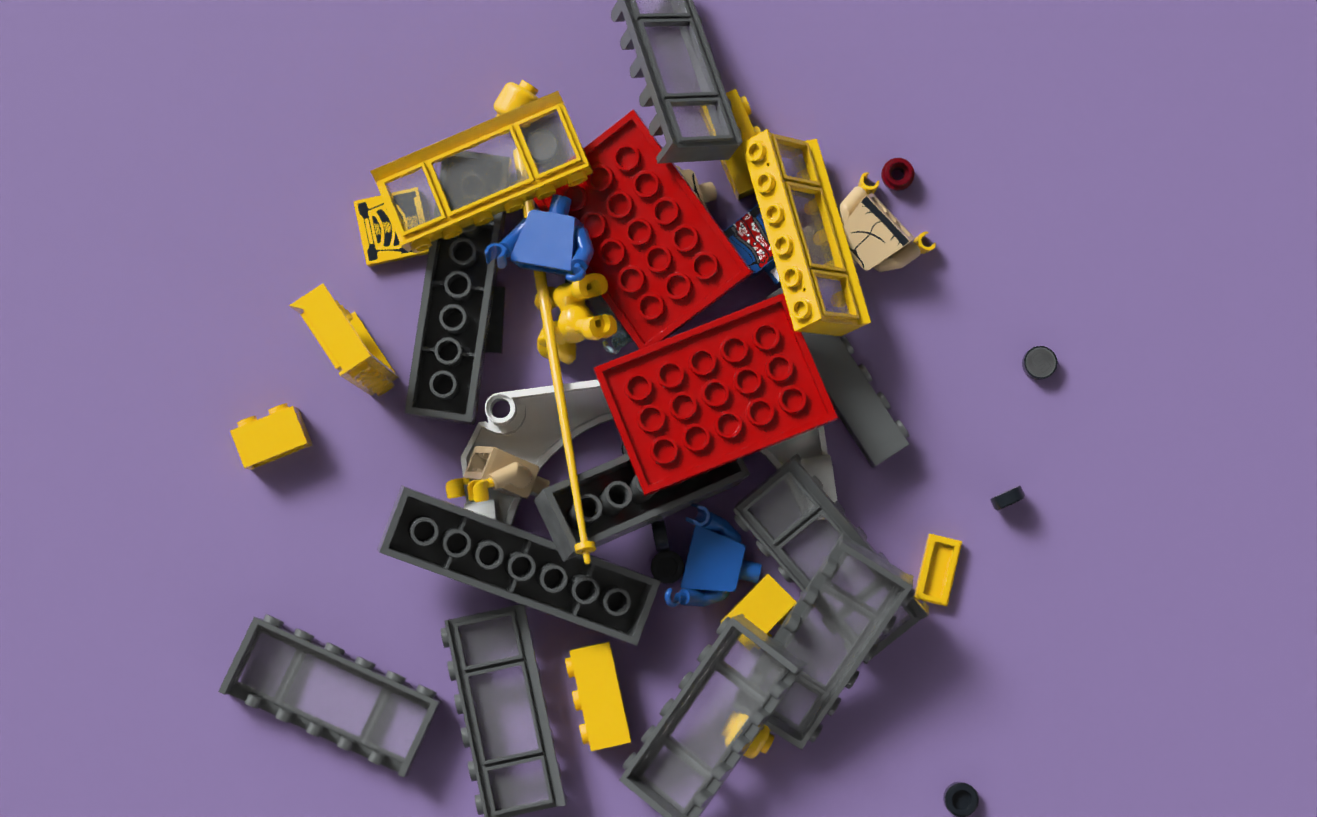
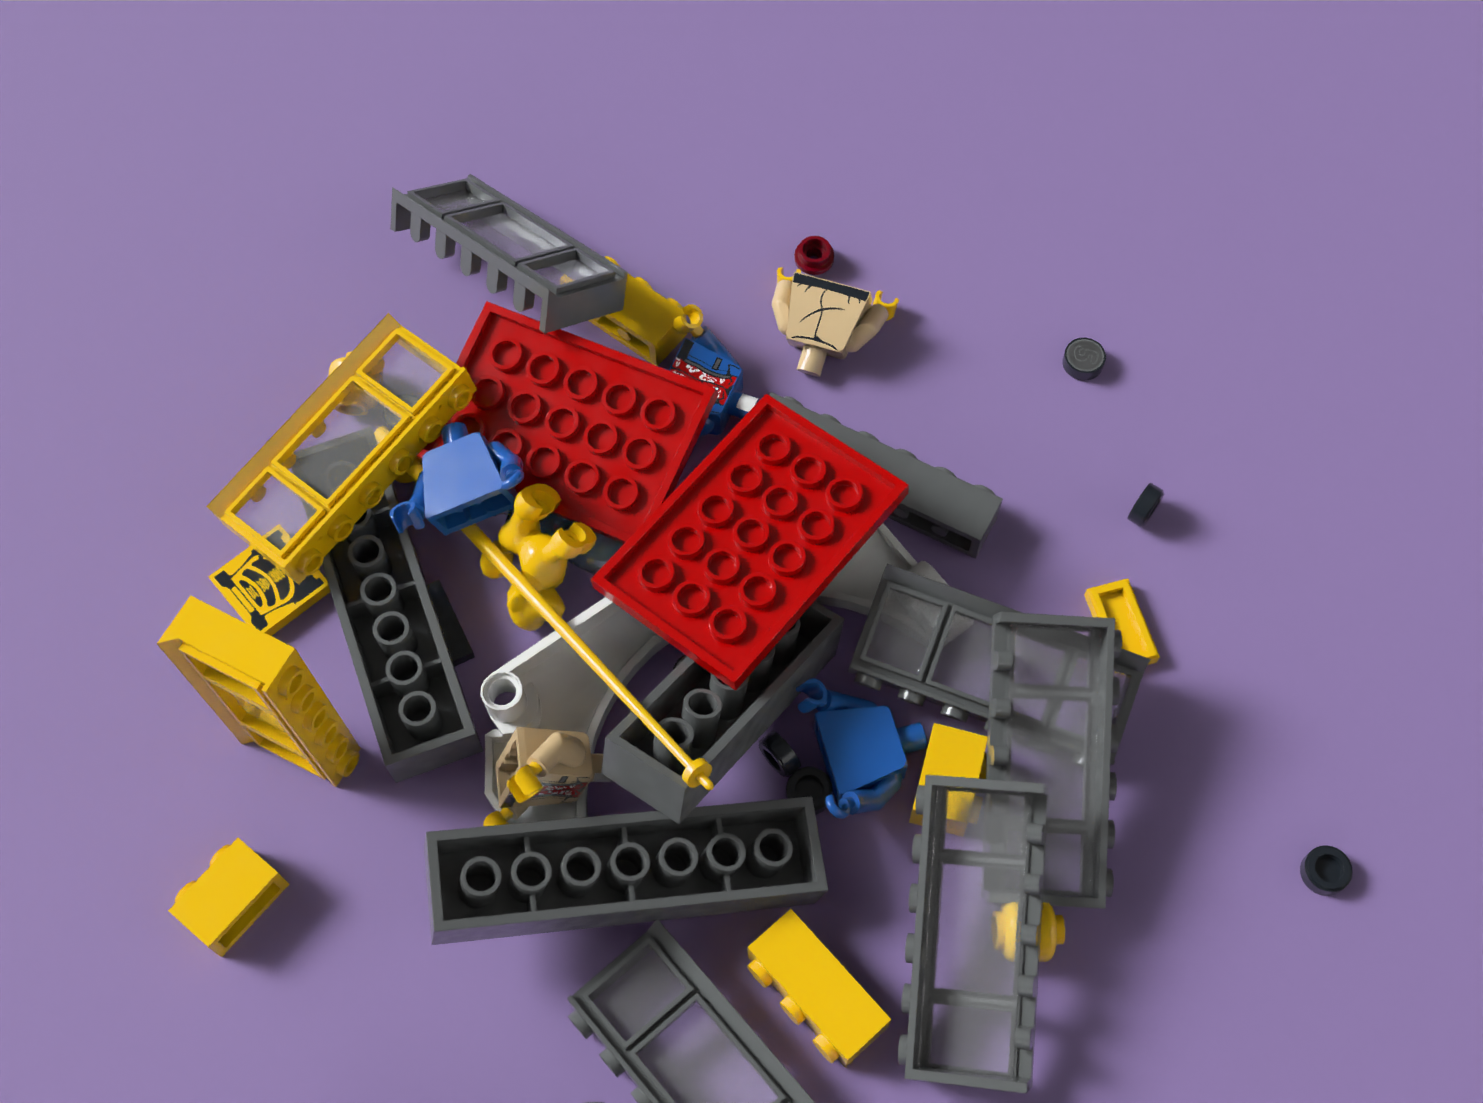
camera: 25 degrees left, 20 degrees down
(805, 234) = (755, 339): yellow window -> none

